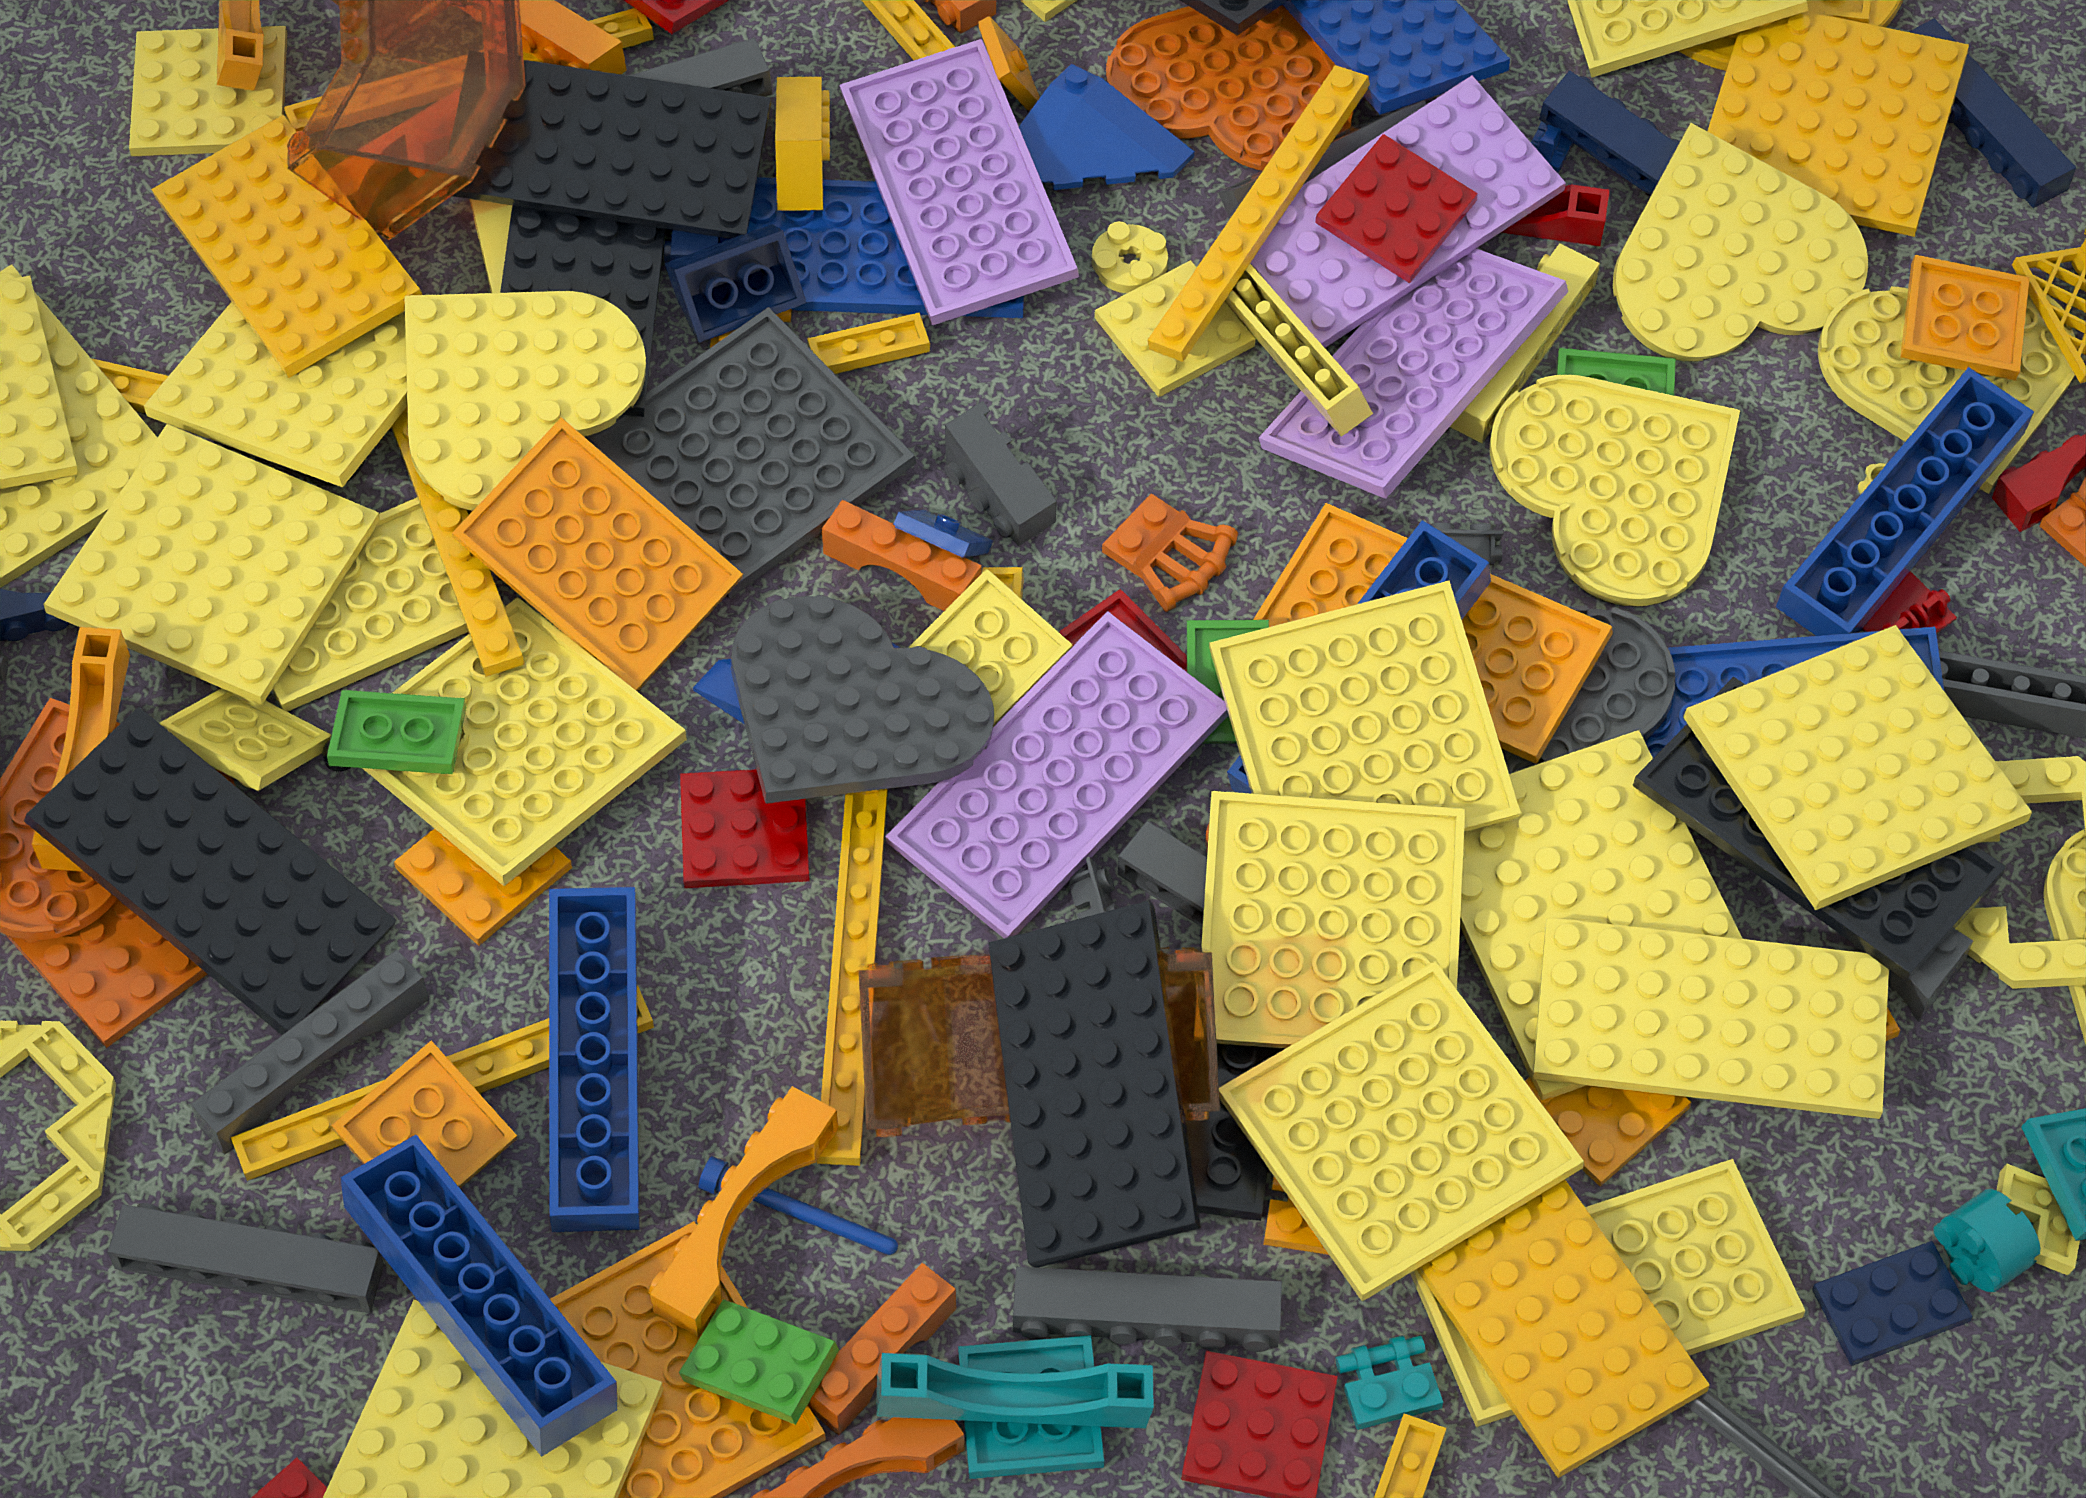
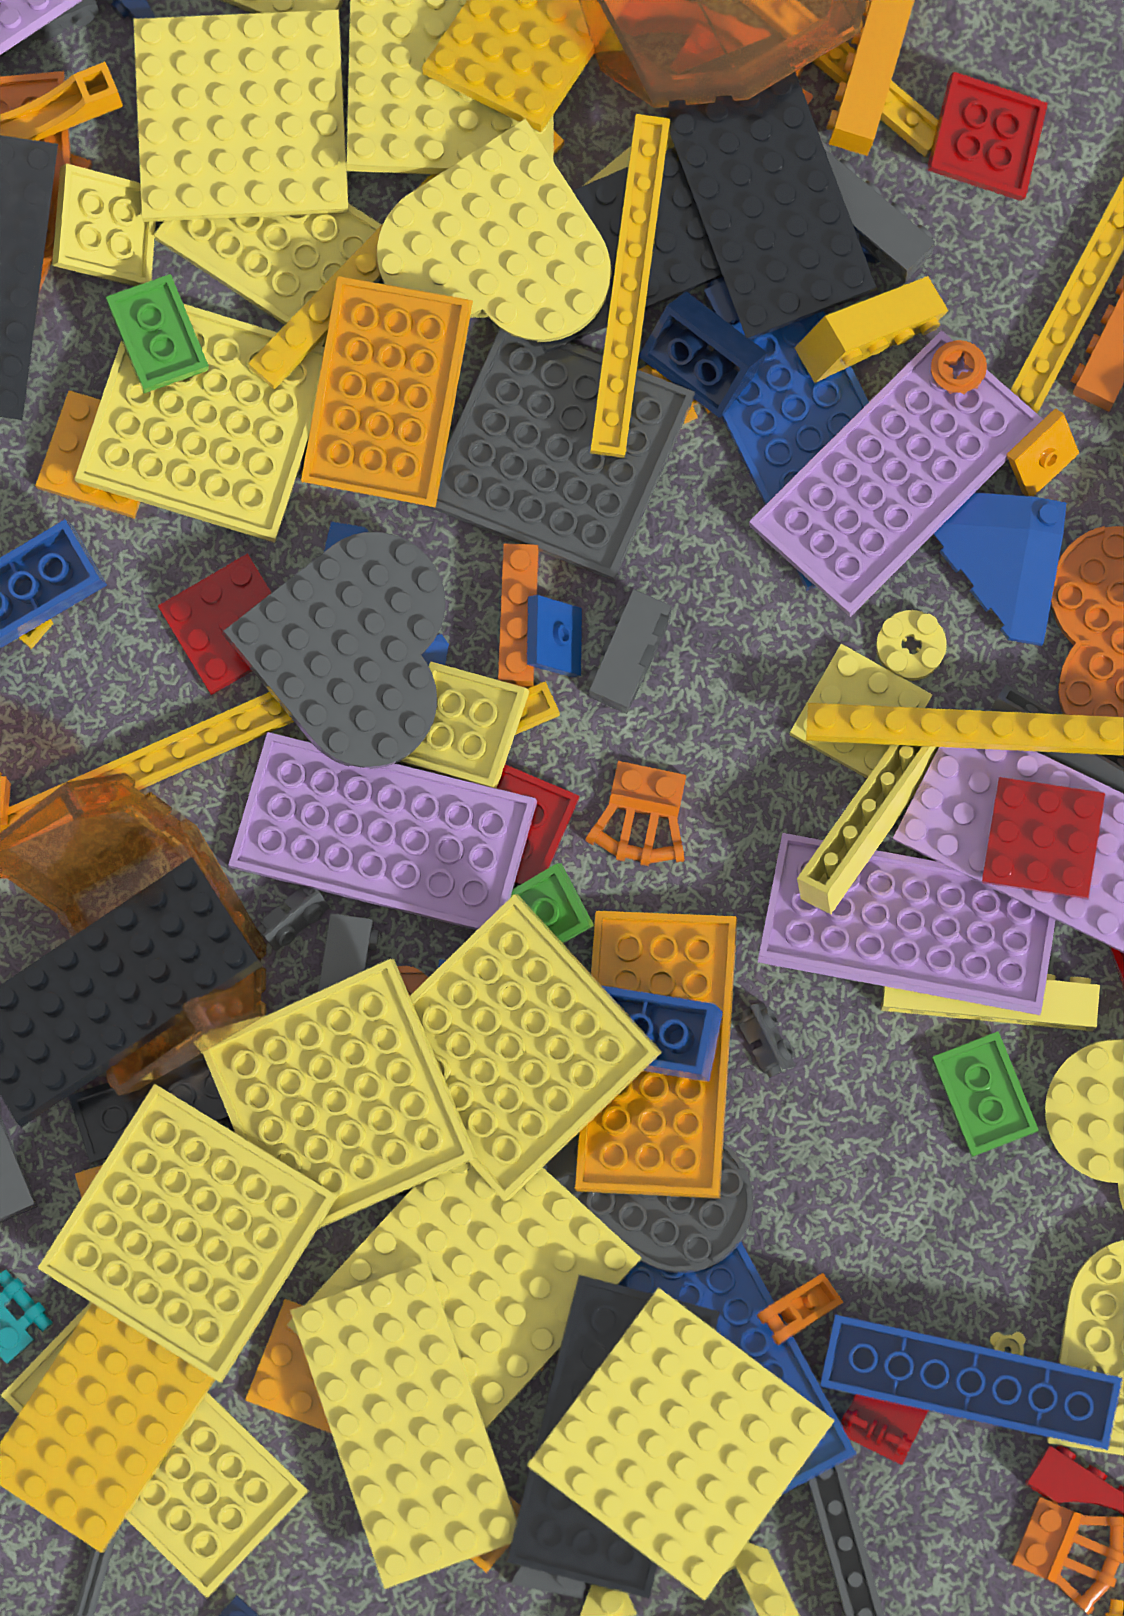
camera: 65 degrees right, 20 degrees up
(642, 304) = (630, 286): none -> yellow plate
(871, 343) = (711, 485): yellow plate -> none
(888, 67) = (949, 355): none -> orange gear
(1622, 476) = (892, 1141): light yellow plate -> none
(1760, 622) = (800, 1308): none -> orange plate

